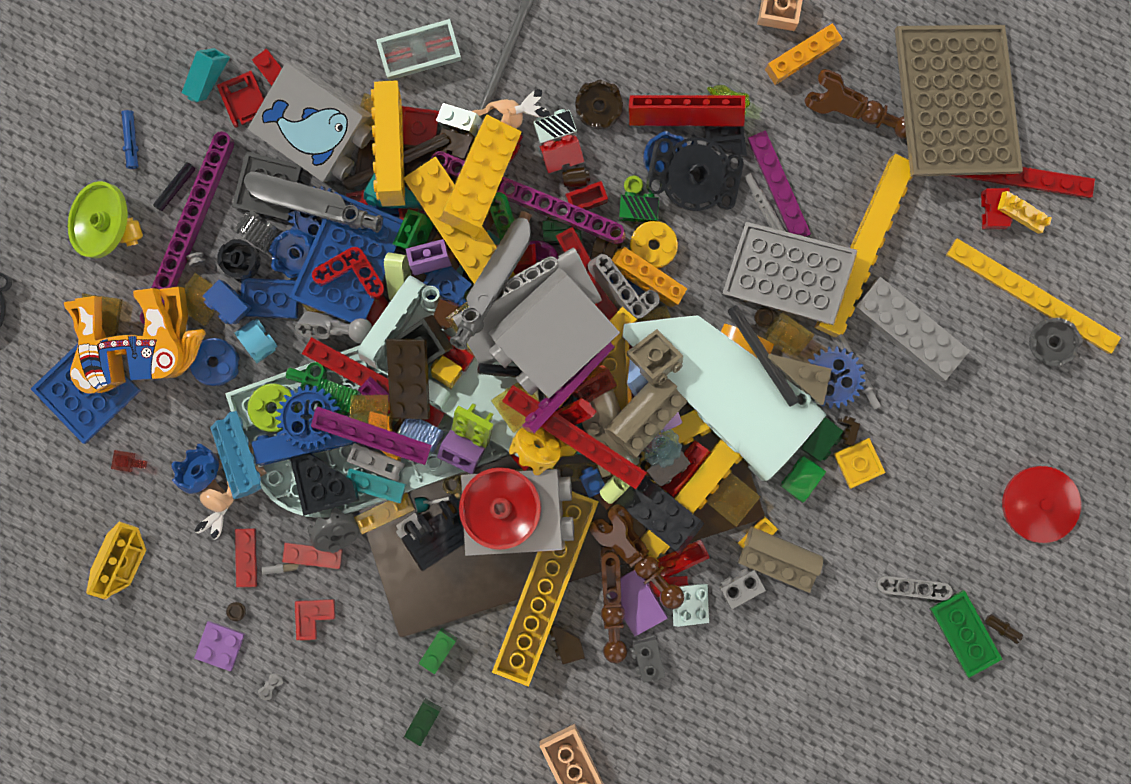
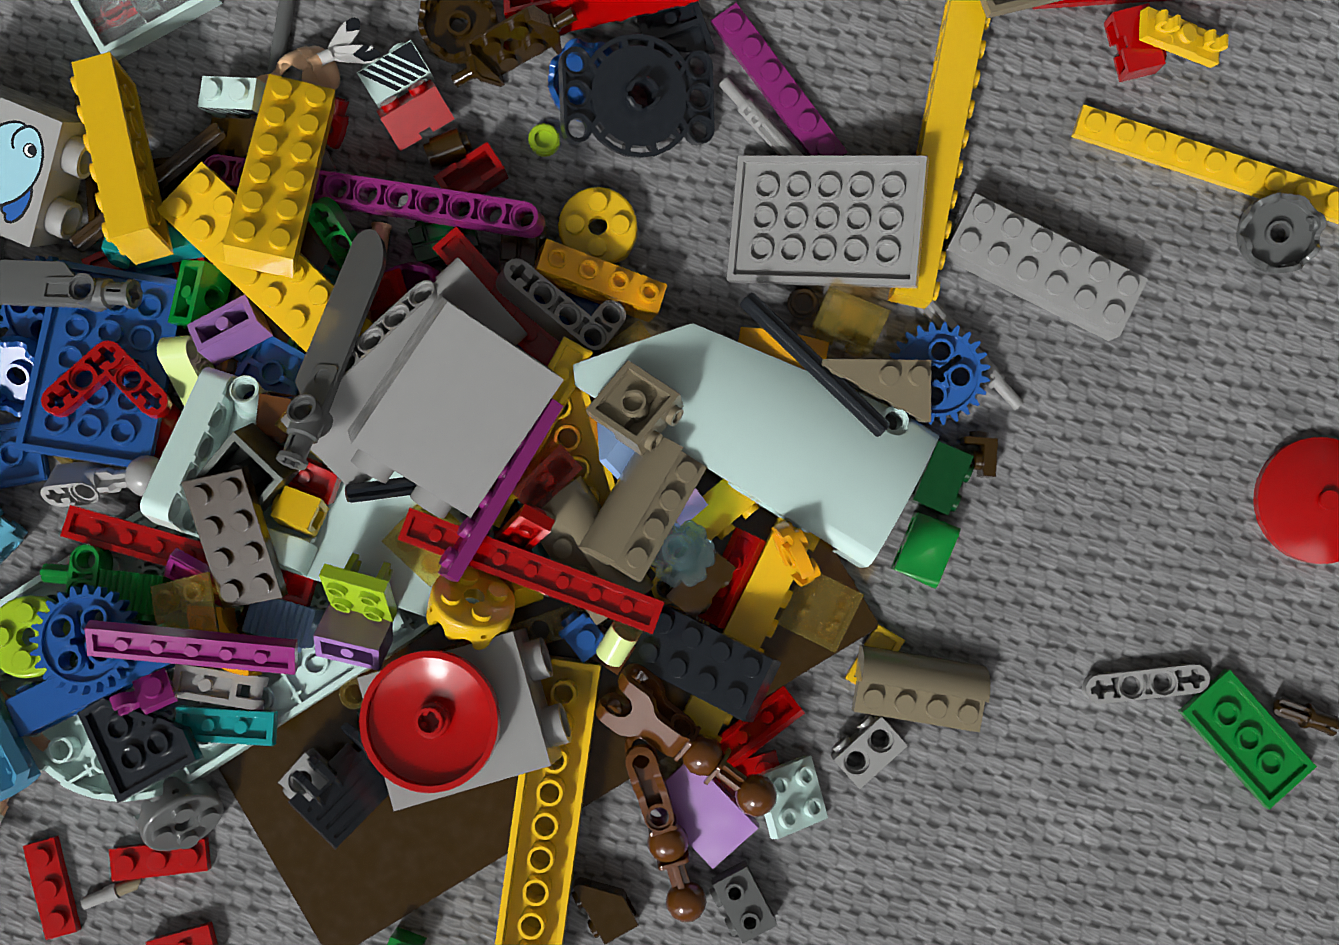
camera: 10 degrees left, 0 degrees up
(337, 456) = (150, 694): none -> magenta plate
(383, 514) = (259, 764): yellow plate -> none
(418, 125) = (172, 121): red plate -> none
(422, 503) = (317, 734): hinge -> none
(629, 126) = (493, 56): none -> dark brown plate
(638, 208) = (559, 173): brick -> none
(725, 460) = (791, 548): none -> light orange plate
(859, 463) = (1011, 502): yellow plate -> none

